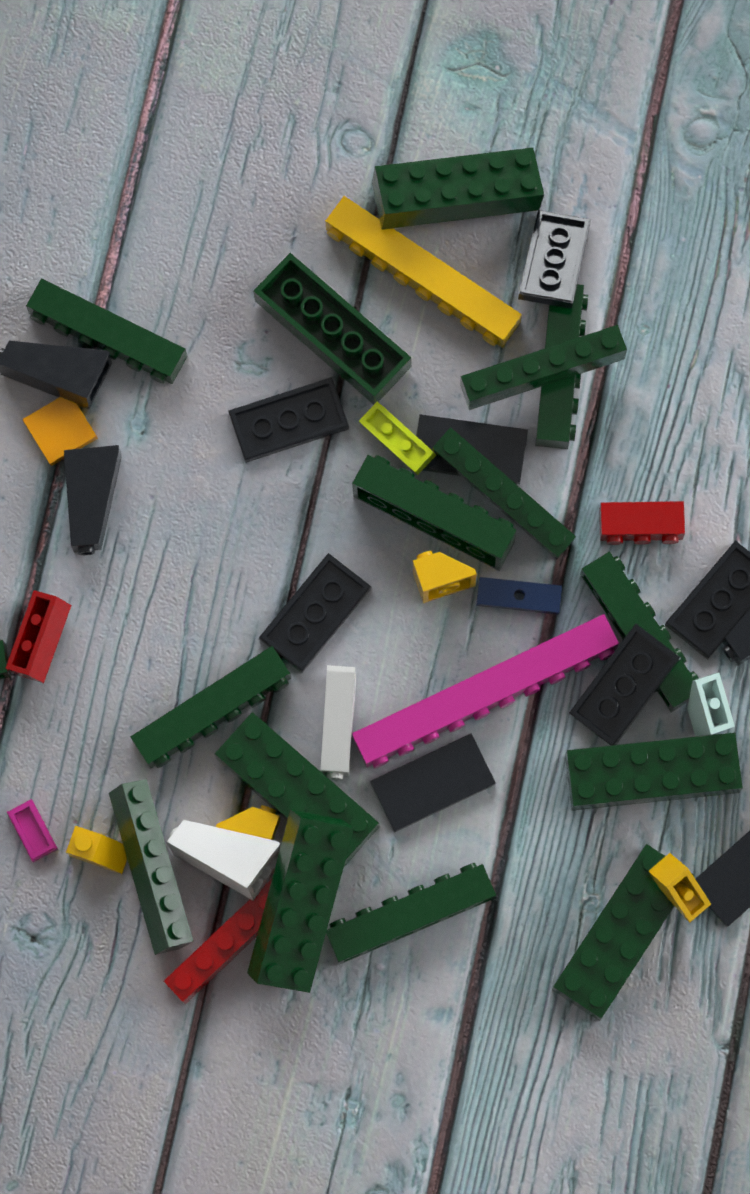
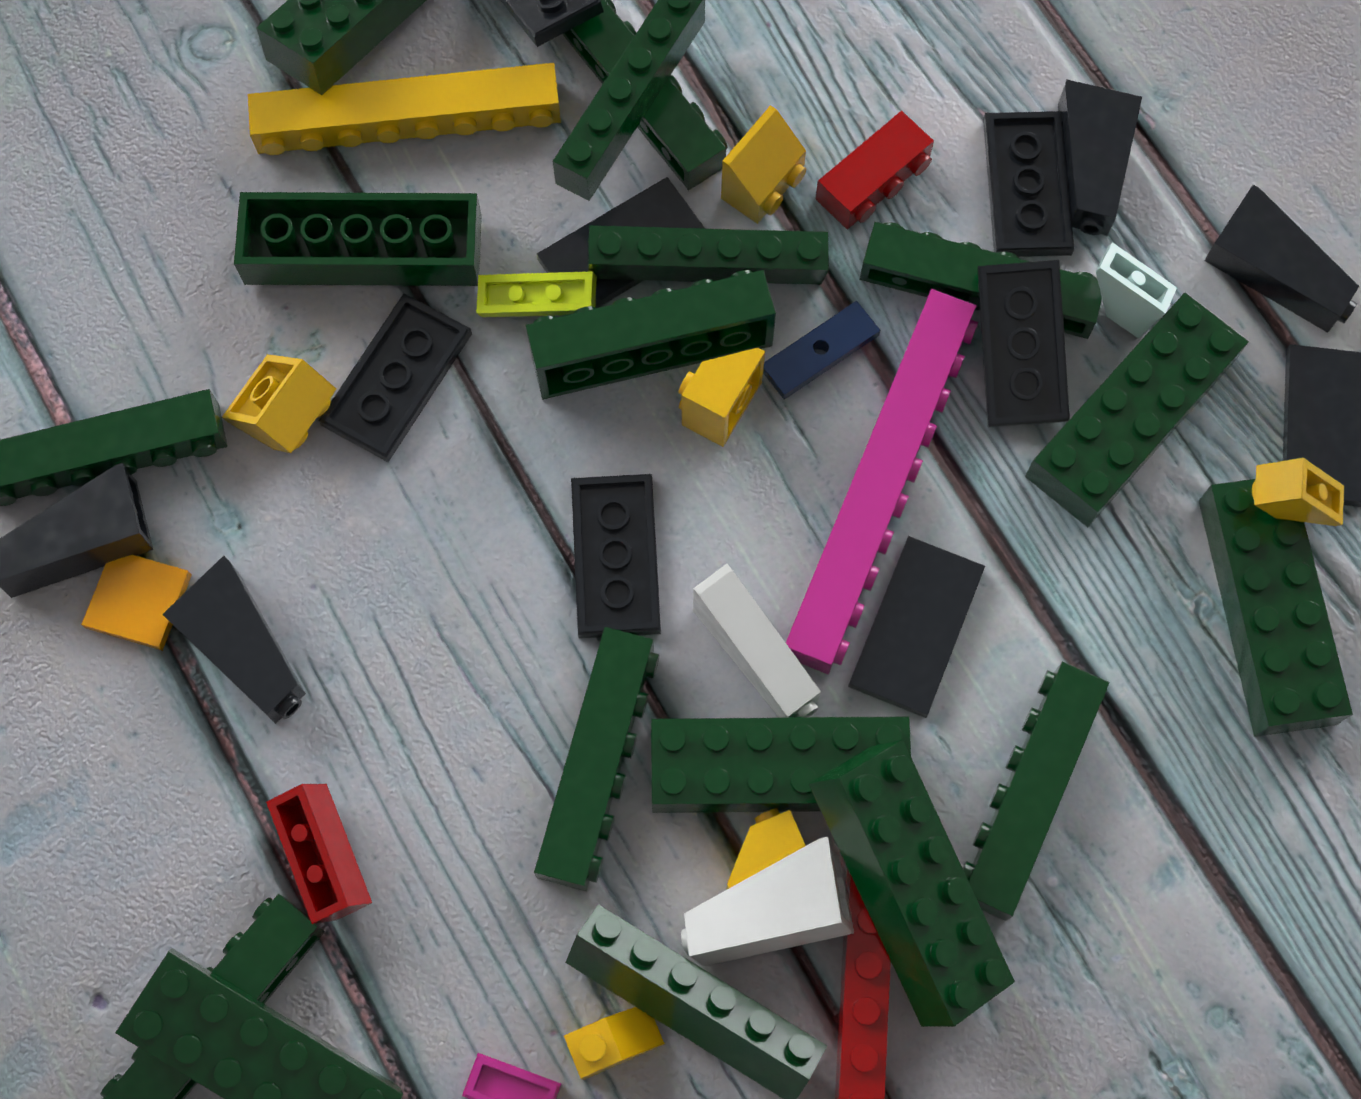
camera: 45 degrees left, 5 degrees down
(216, 384) = (280, 402): none -> yellow slope
(579, 470) = (762, 167): none -> yellow slope

